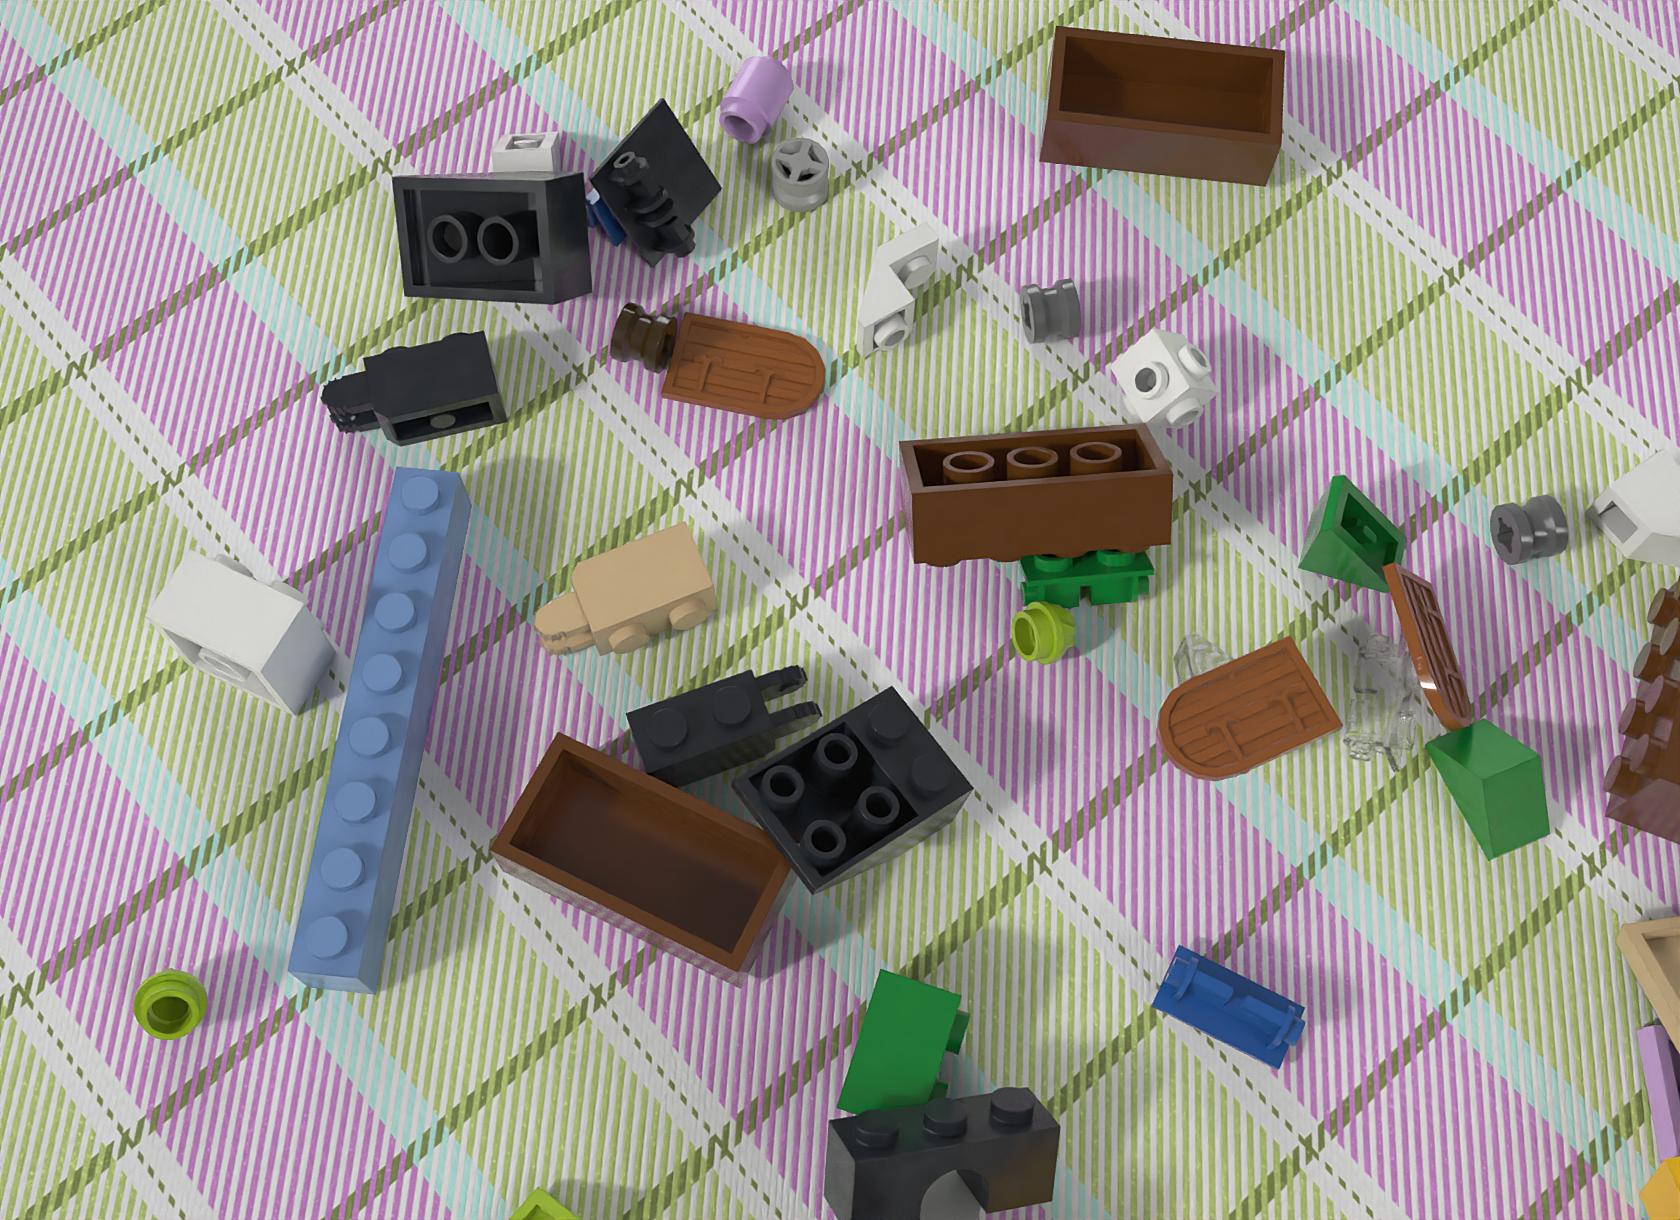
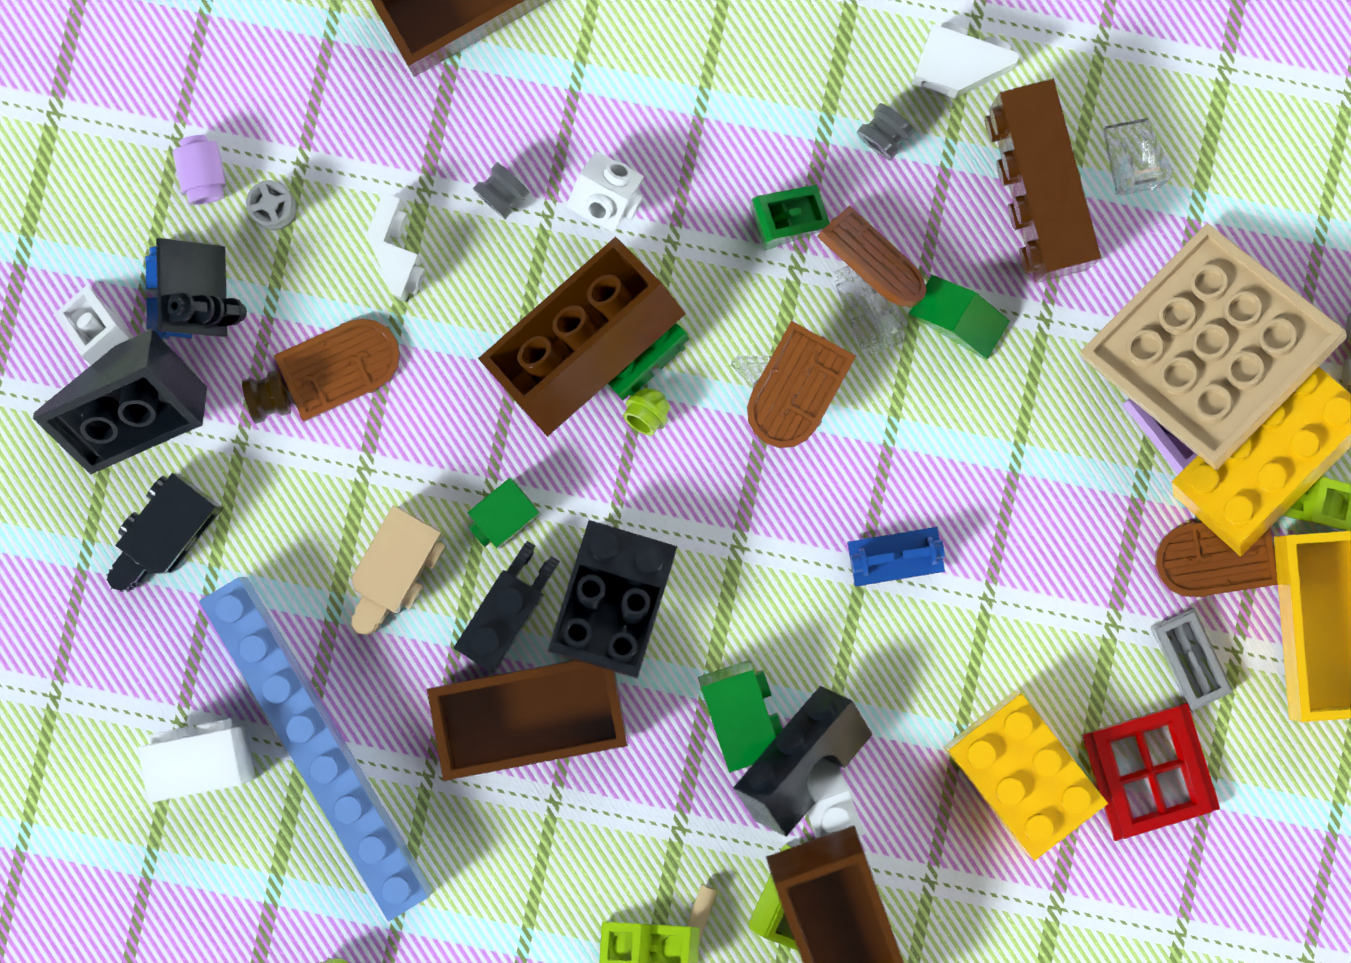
camera: 30 degrees left, 20 degrees up
(797, 625) = (502, 515): none -> green brick

